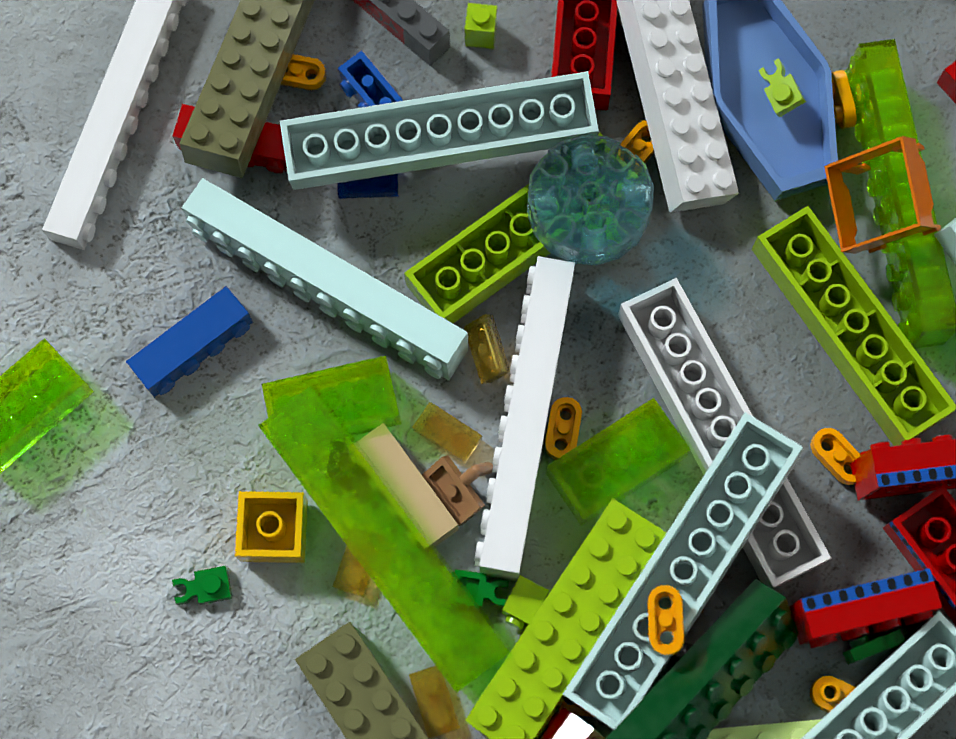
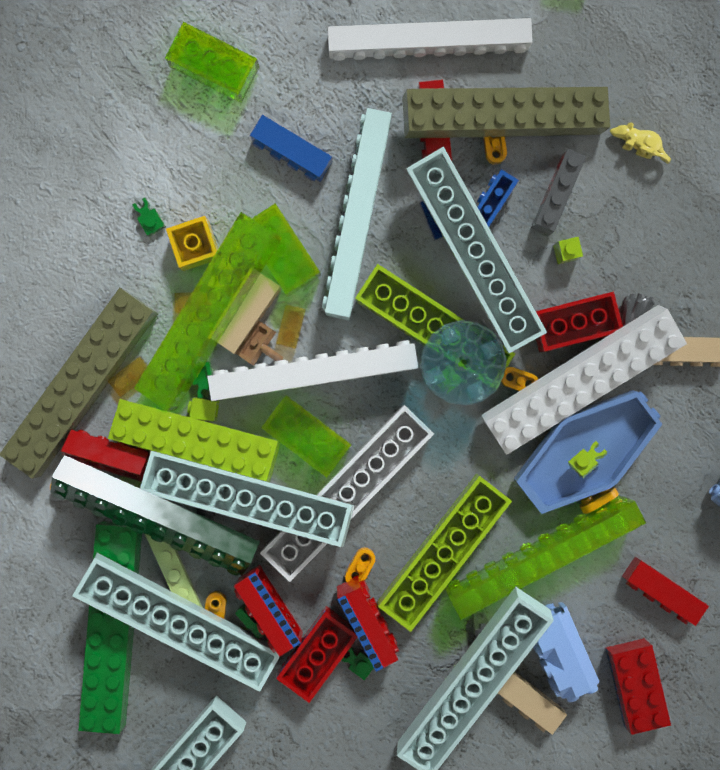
camera: 65 degrees right, 15 degrees up
(487, 349) = (351, 332): clear yellow plate -> none
(562, 429) = (318, 395): light orange plate -> none
(665, 620) = (209, 497): light orange plate -> none
(842, 201) = (541, 568): orange piece -> none

